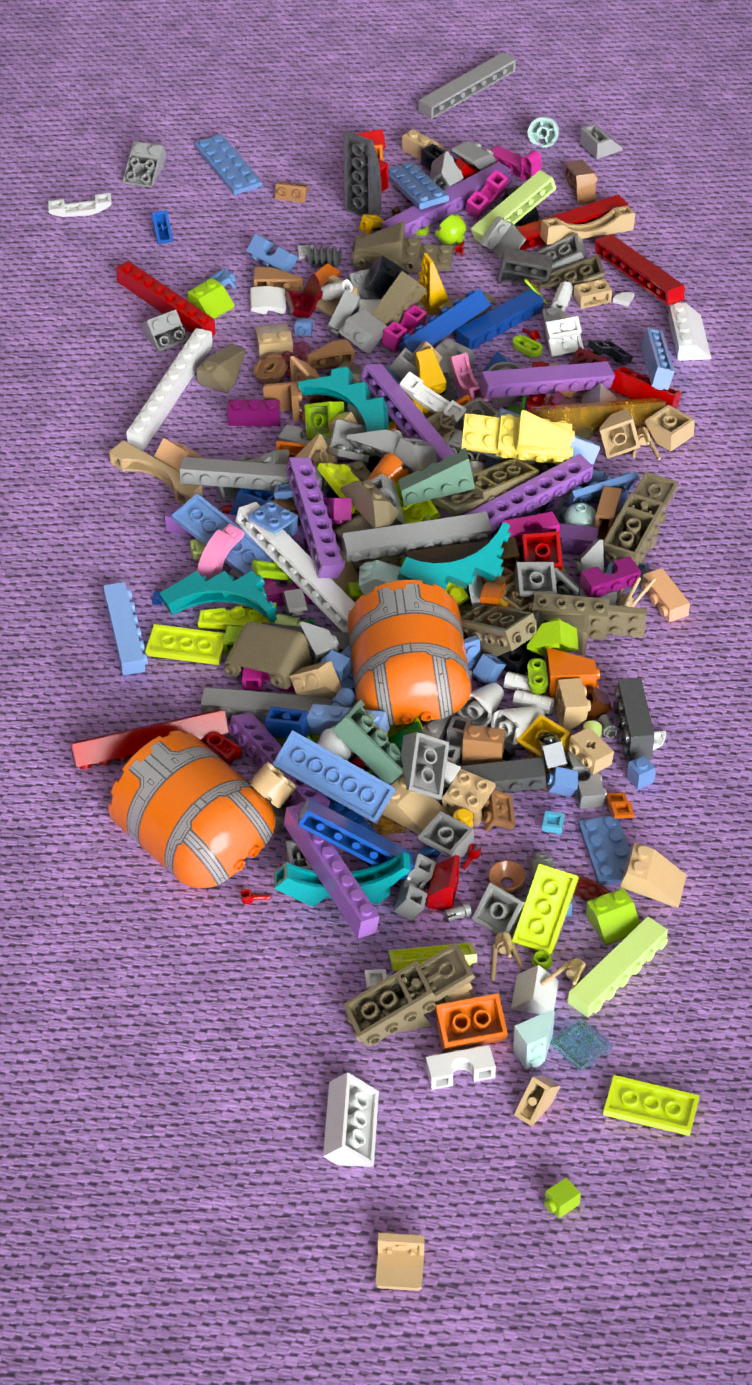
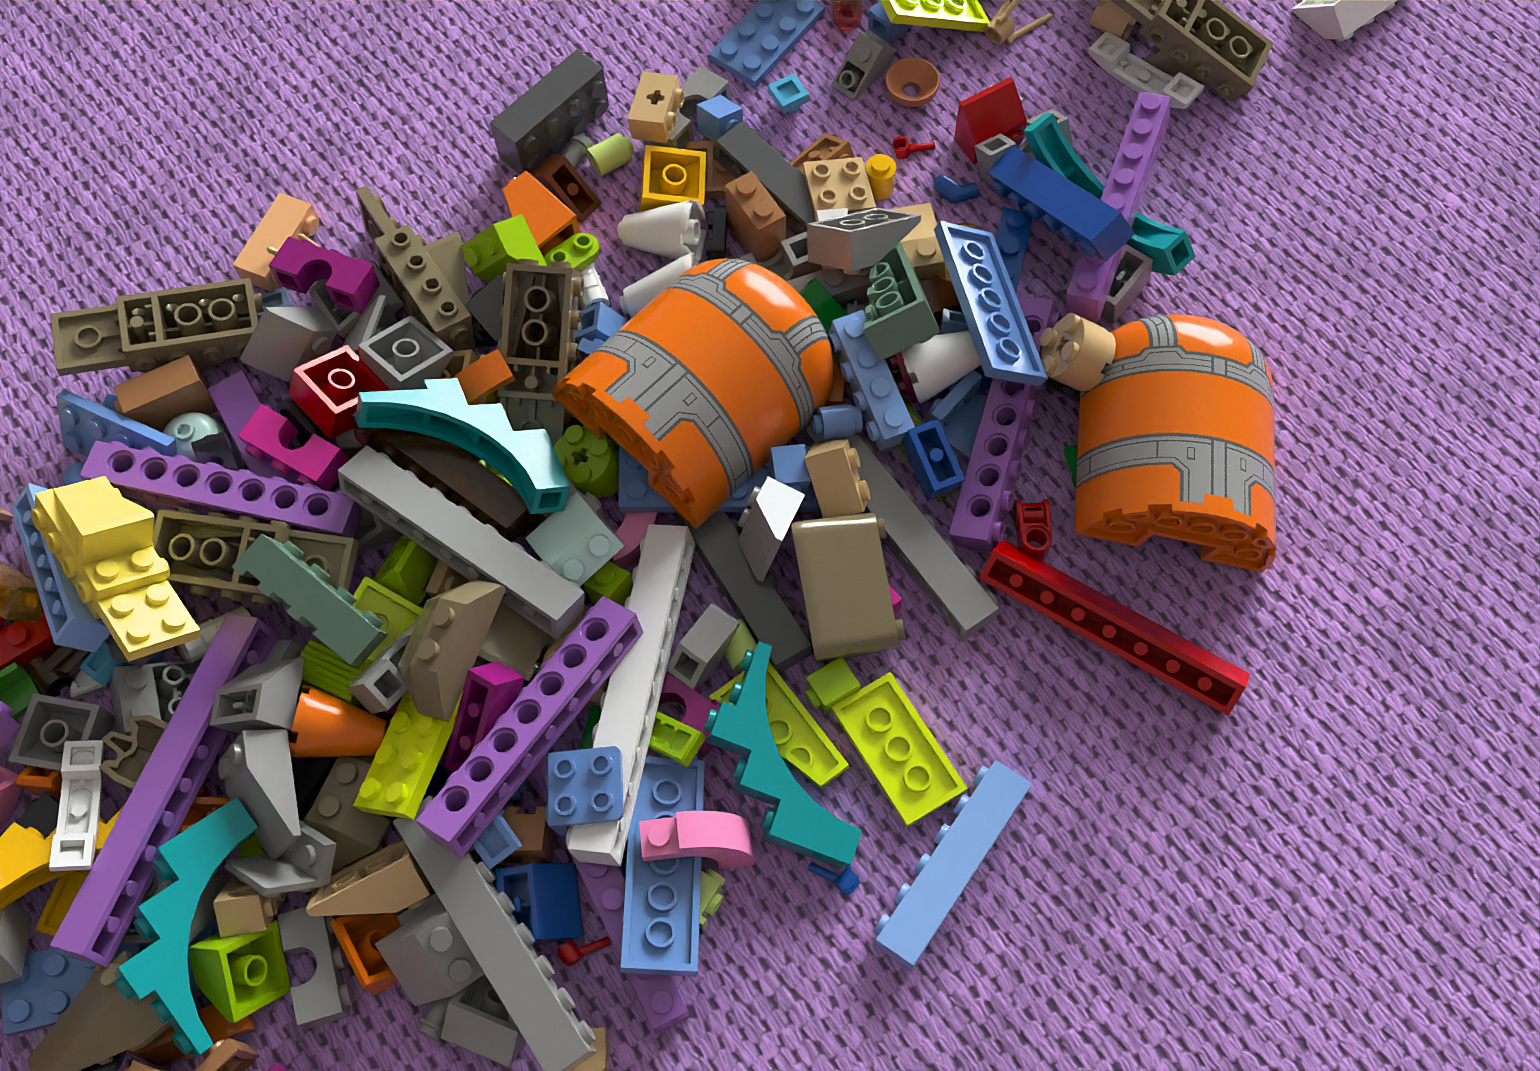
camera: 130 degrees left, 20 degrees up
(248, 898) = (1201, 311): red hand -> none
(403, 957) = (1095, 65): neon yellow plate -> none
(448, 835) = (925, 167): light grey slope -> none
(498, 910) = (965, 58): light grey slope -> none
(528, 699) = (611, 255): white axle -> none
(551, 750) = (696, 138): slope -> none
(571, 703) = (589, 188): tan slope -> none
(619, 806) = (700, 50): orange slope -> none
(641, 772) = (624, 66): medium blue brick -> none

